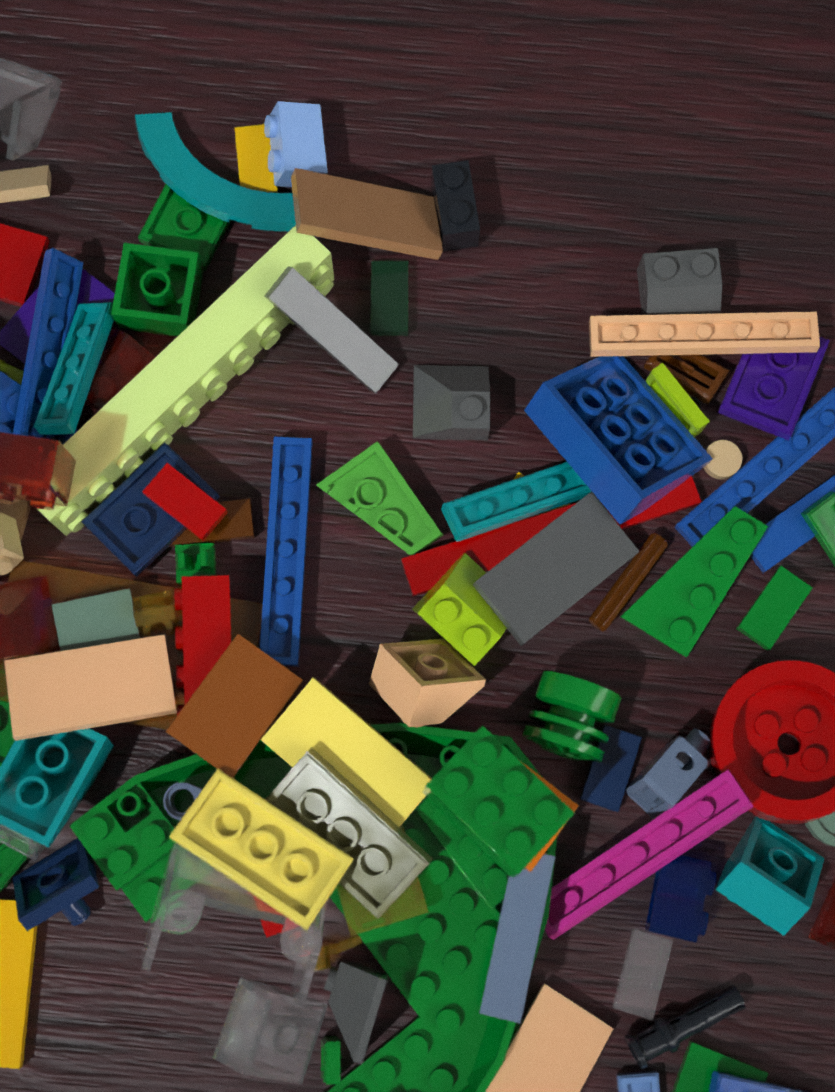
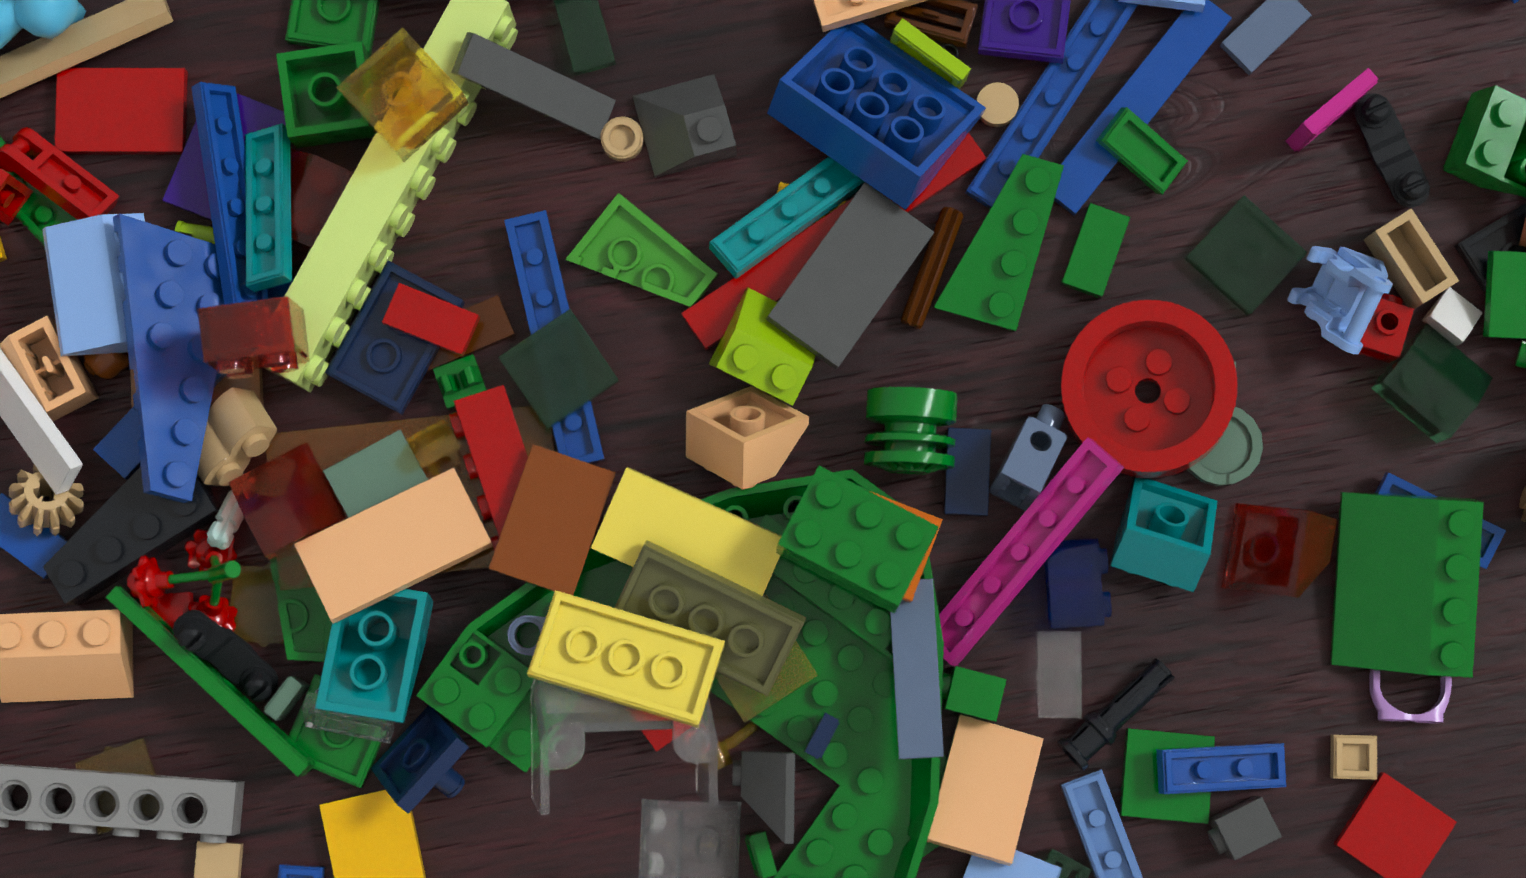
camera: 15 degrees left, 5 degrees up
(216, 301) = (403, 94): none -> clear yellow brick
(281, 576) = (559, 369): none -> clear green tile
(394, 398) = (622, 138): none -> tan tile
(416, 969) = (822, 735): none -> dark blue tile
(562, 969) = (972, 693): none -> green brick

